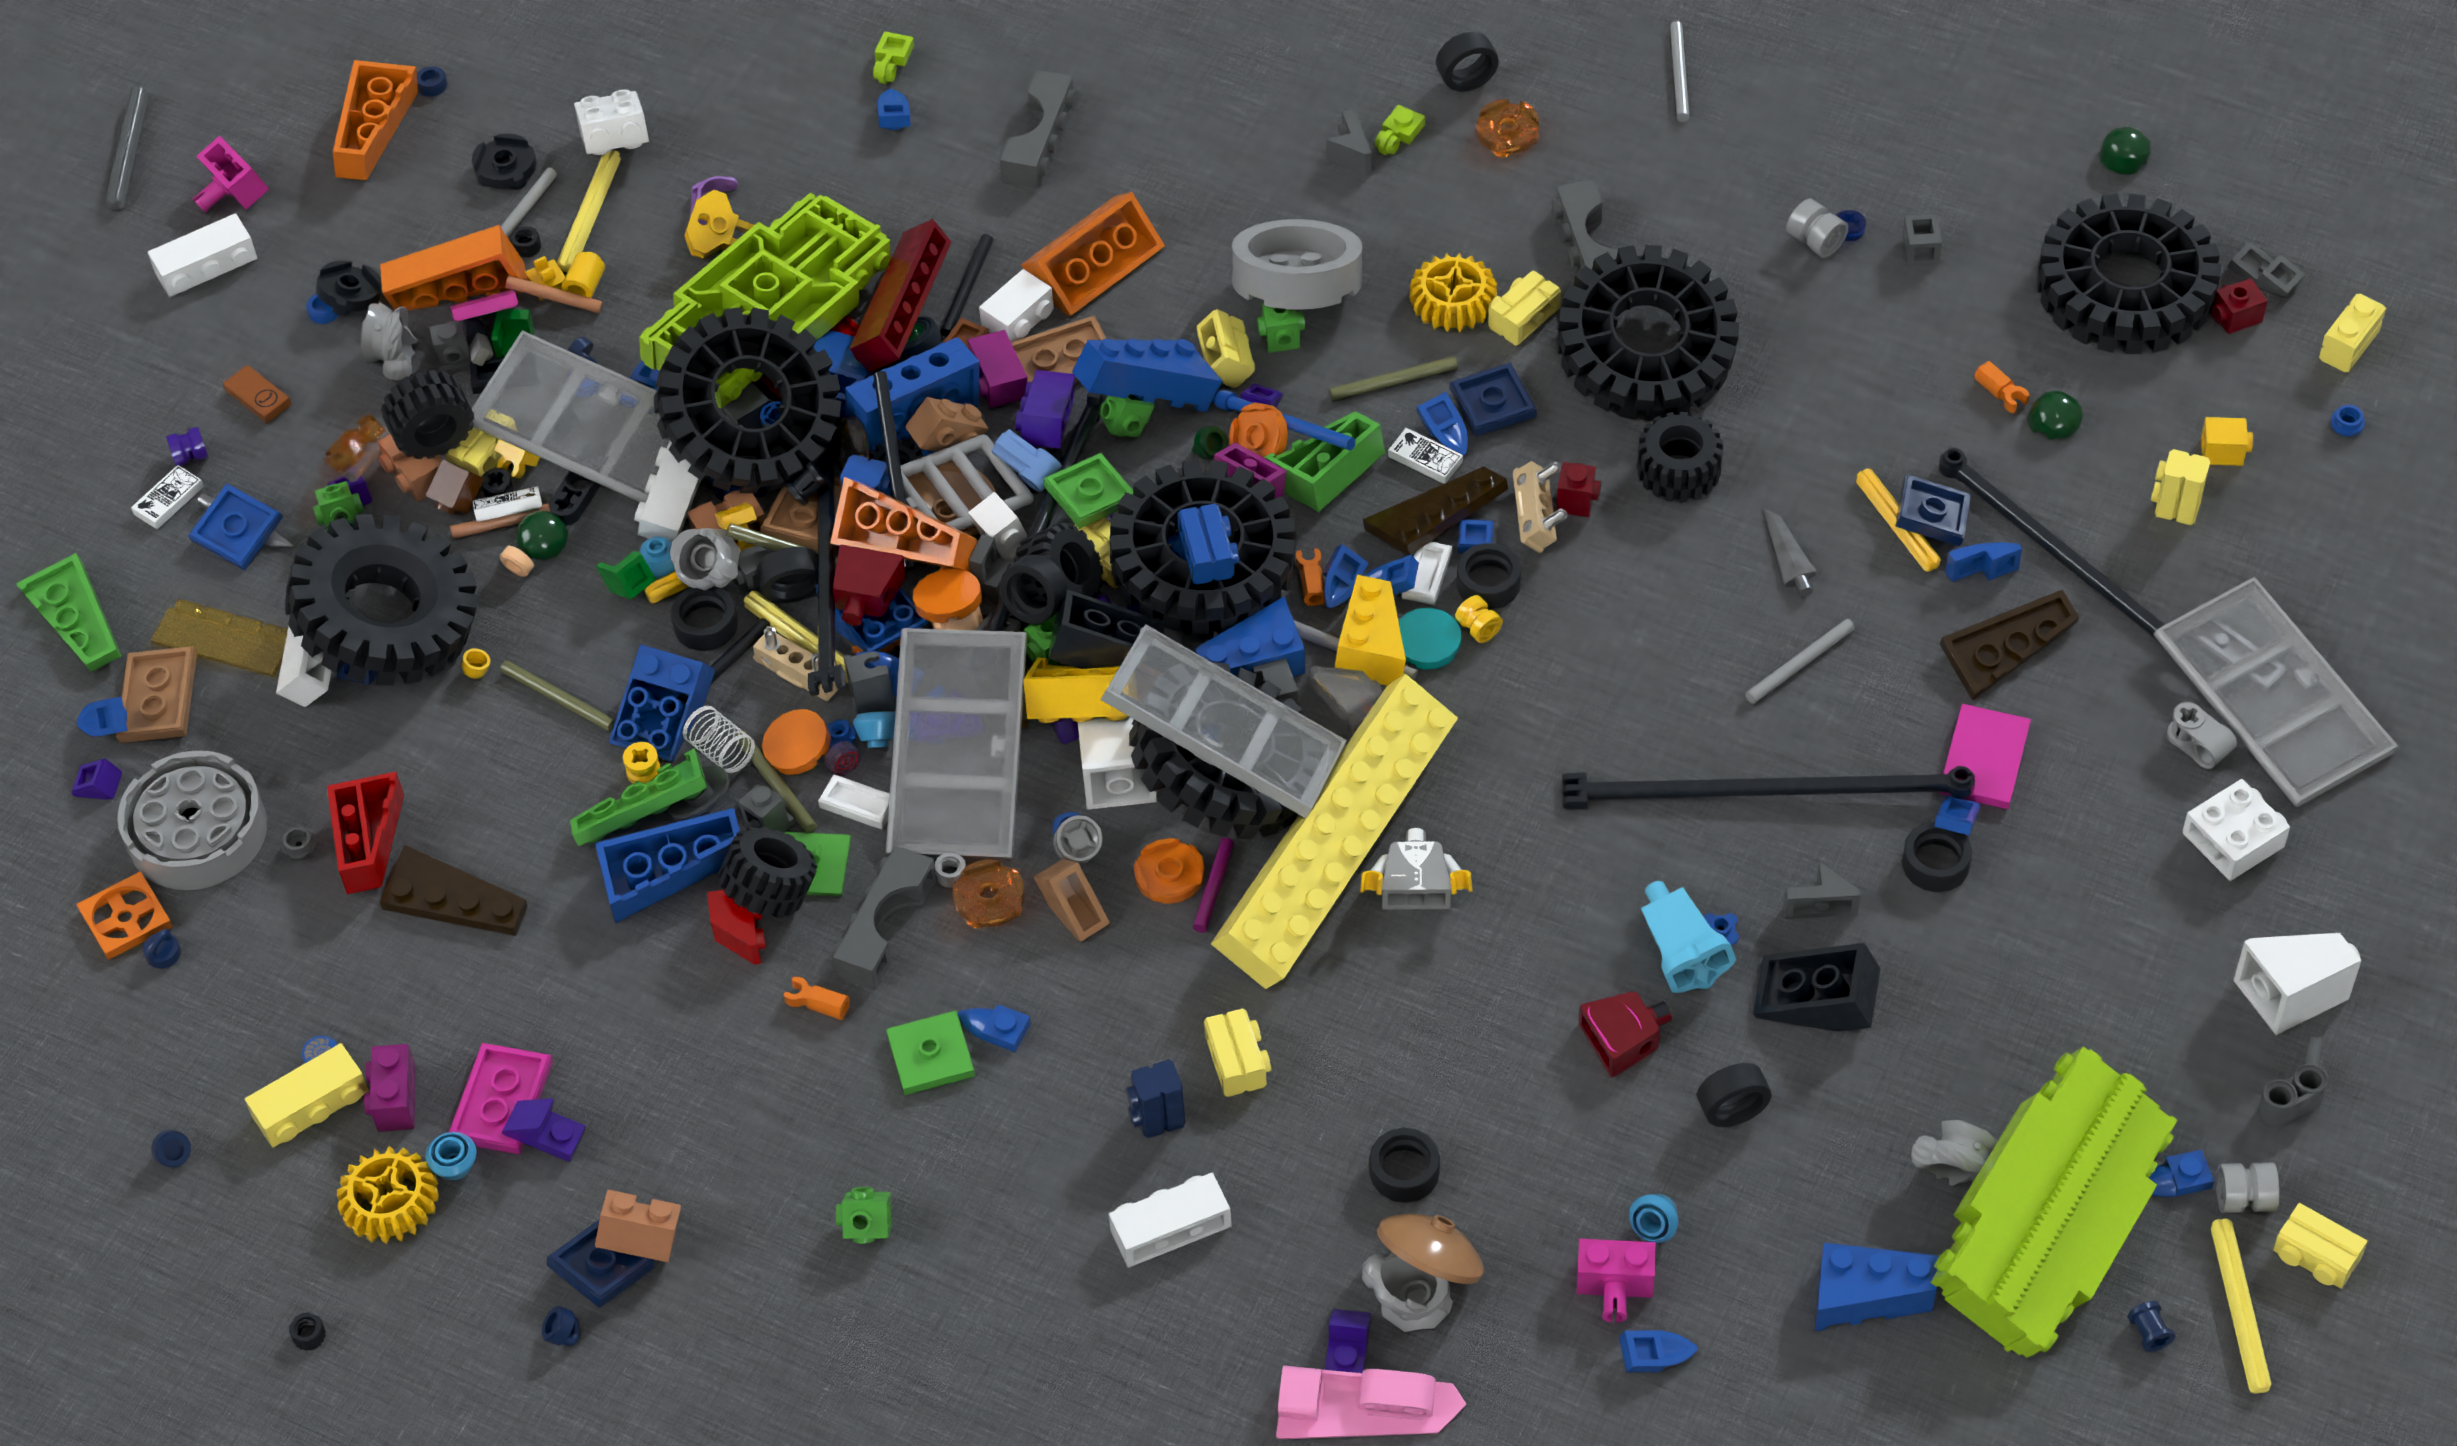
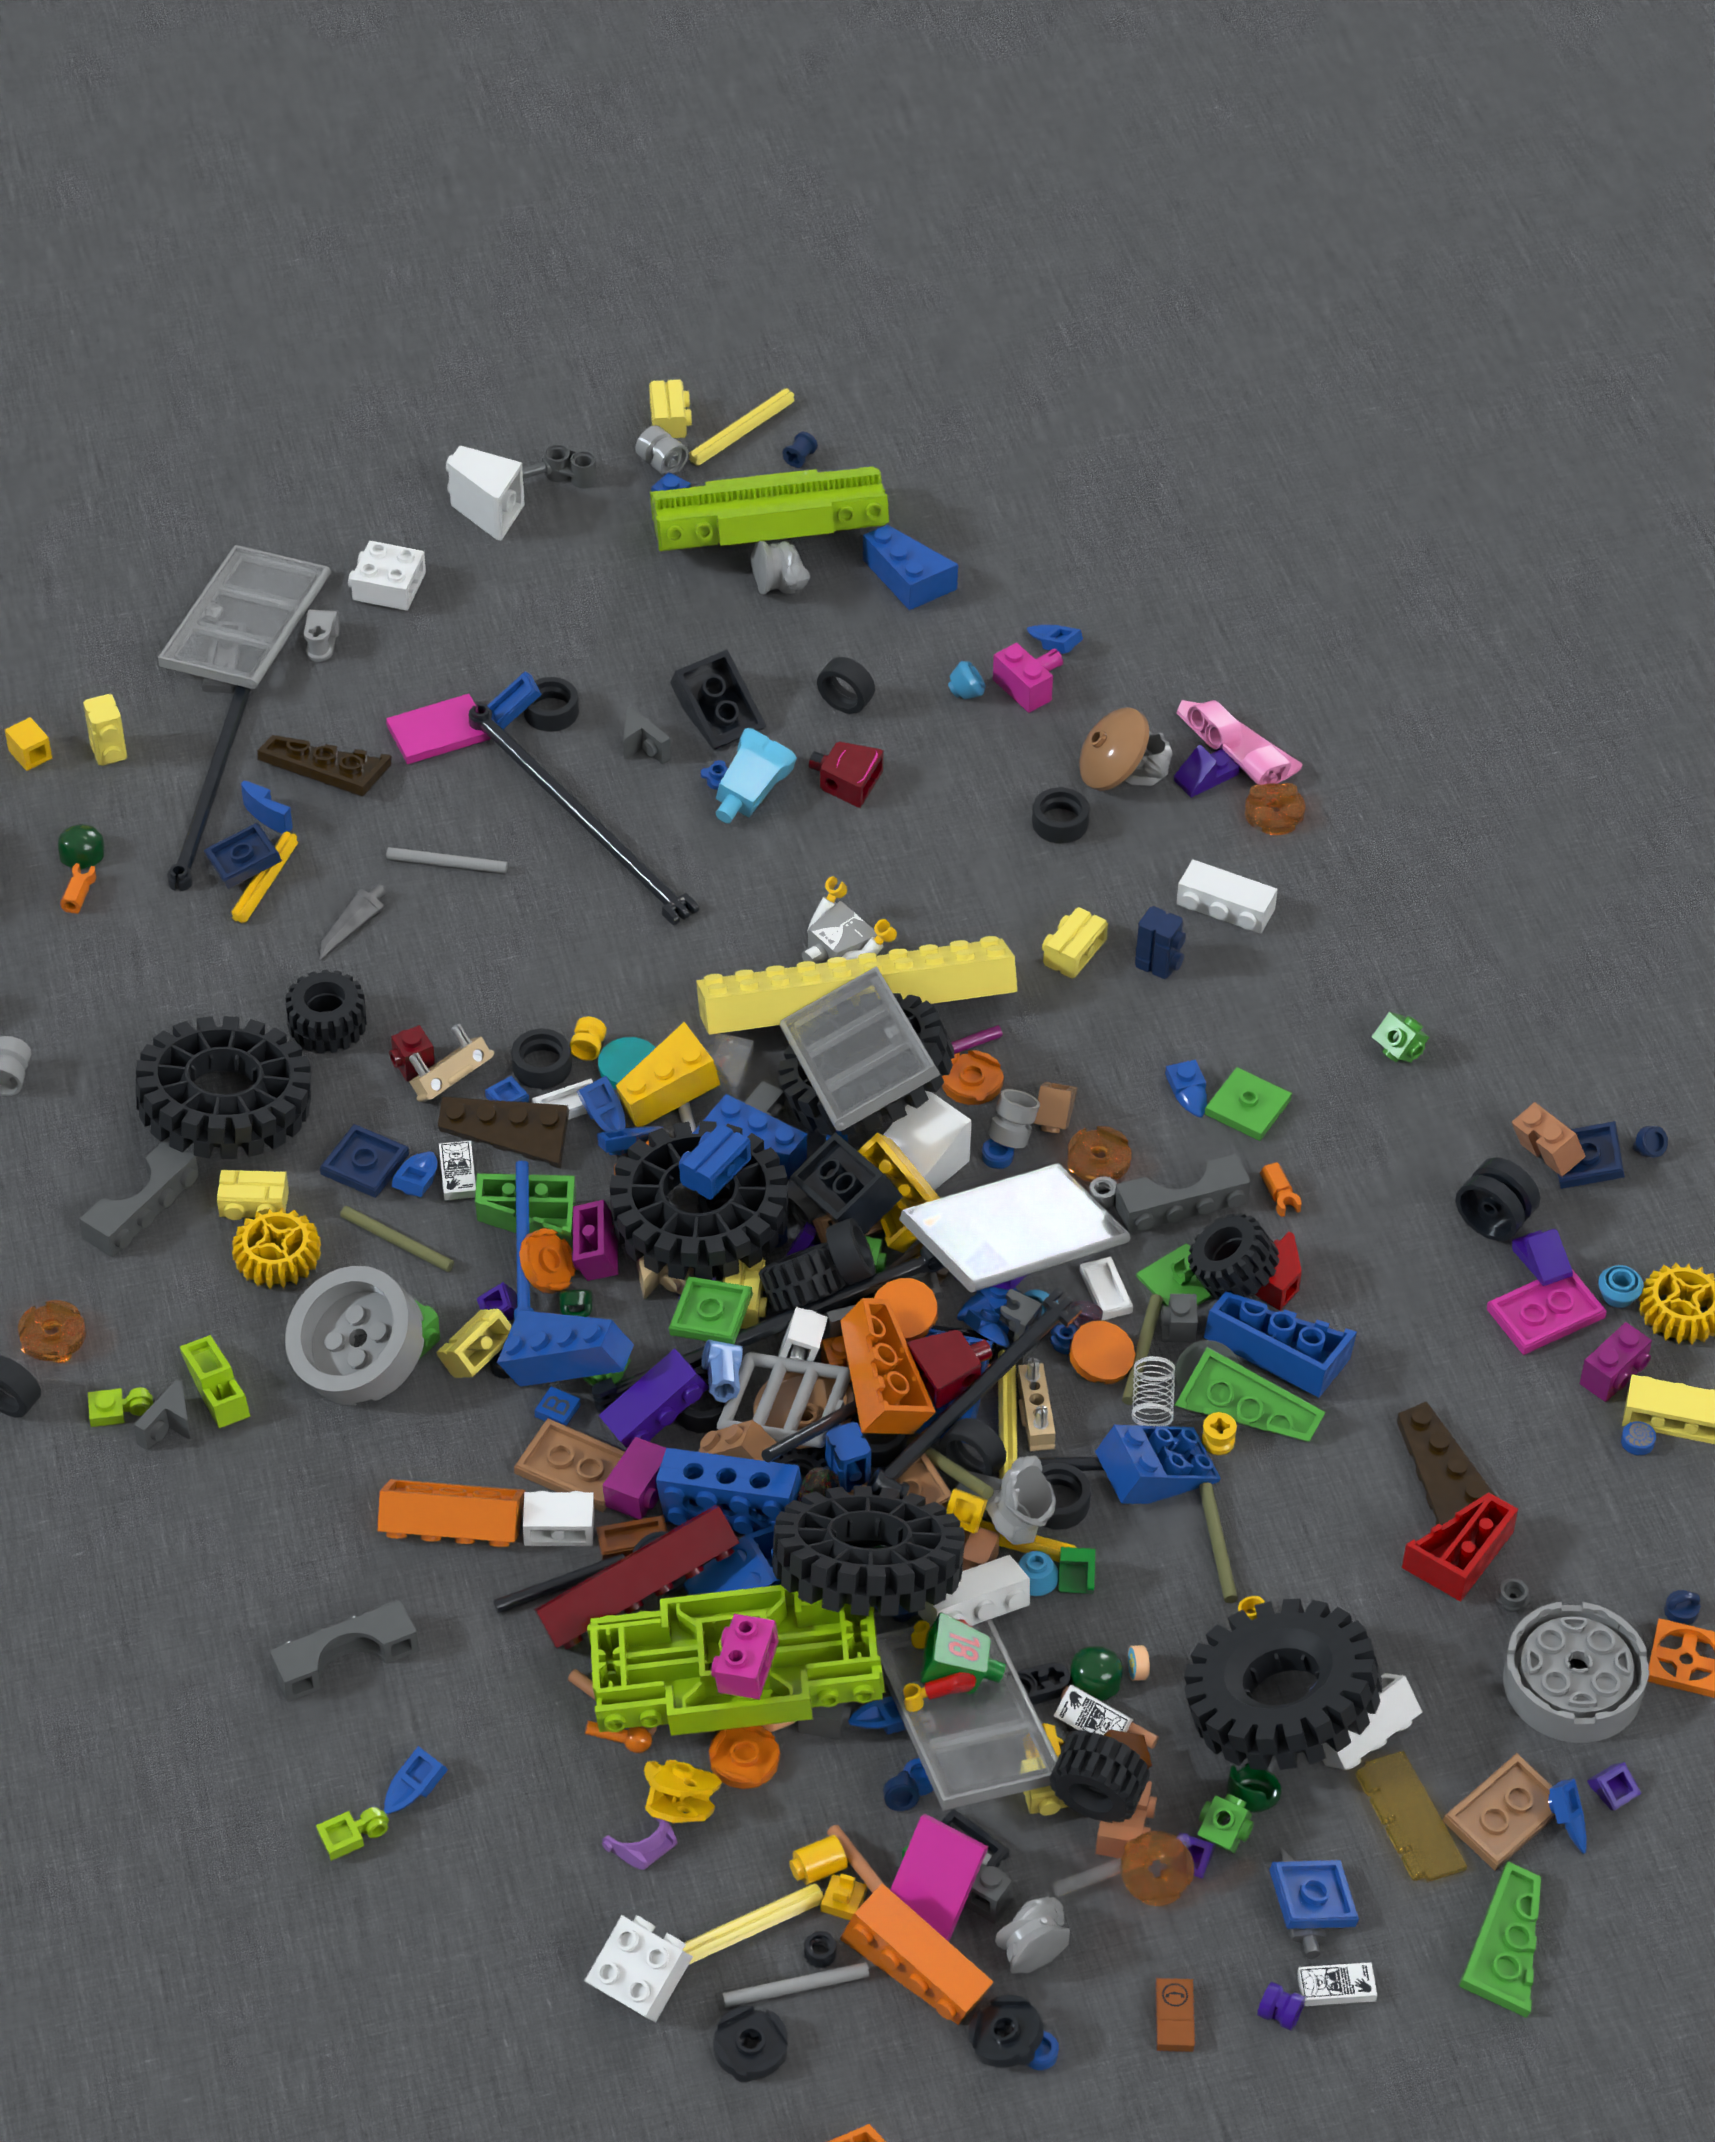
camera: 135 degrees left, 5 degrees down
(619, 1124) = (1497, 1199): none -> black wheel
(621, 419) = (953, 1660): none -> torso
(735, 264) = (745, 1656): none -> dark pink brick
(1239, 1345) = (1283, 796): none -> clear orange plate
(1360, 190) = (215, 1381): none -> lime slope

